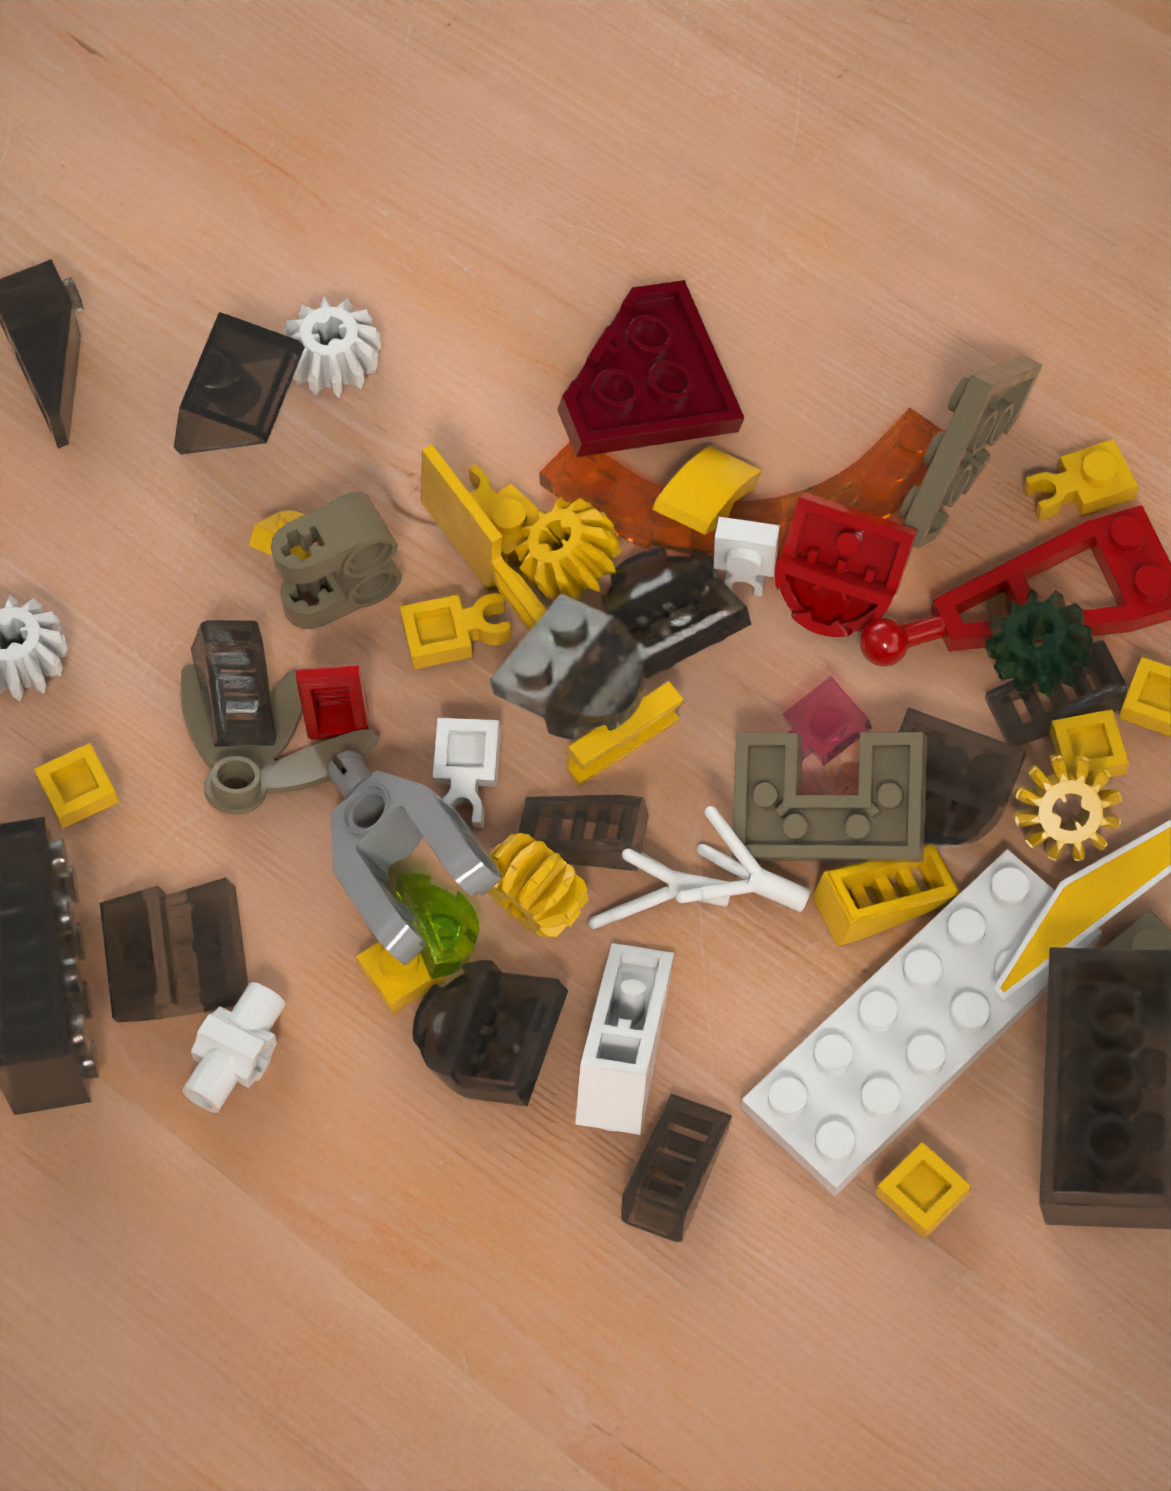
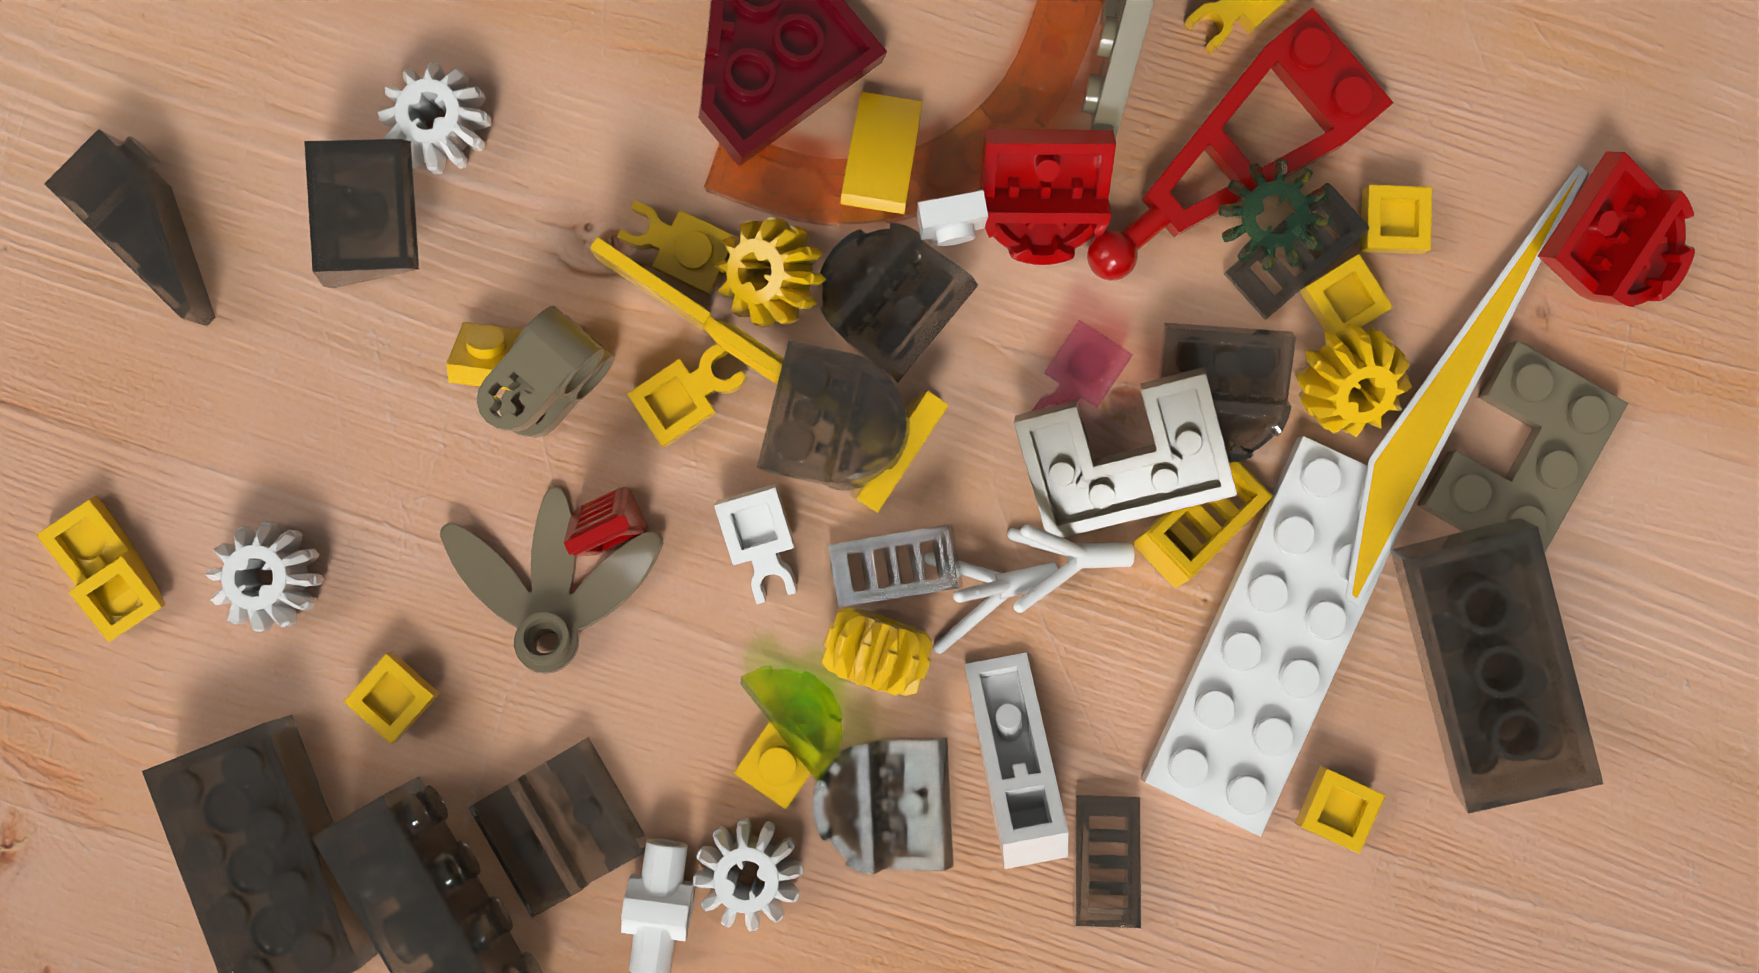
camera: 25 degrees left, 25 degrees up
(234, 647) = (505, 505): clear smoke slope -> none
(331, 1068) = (725, 877): none -> white gear
(384, 824) = (700, 671): light grey piece -> none

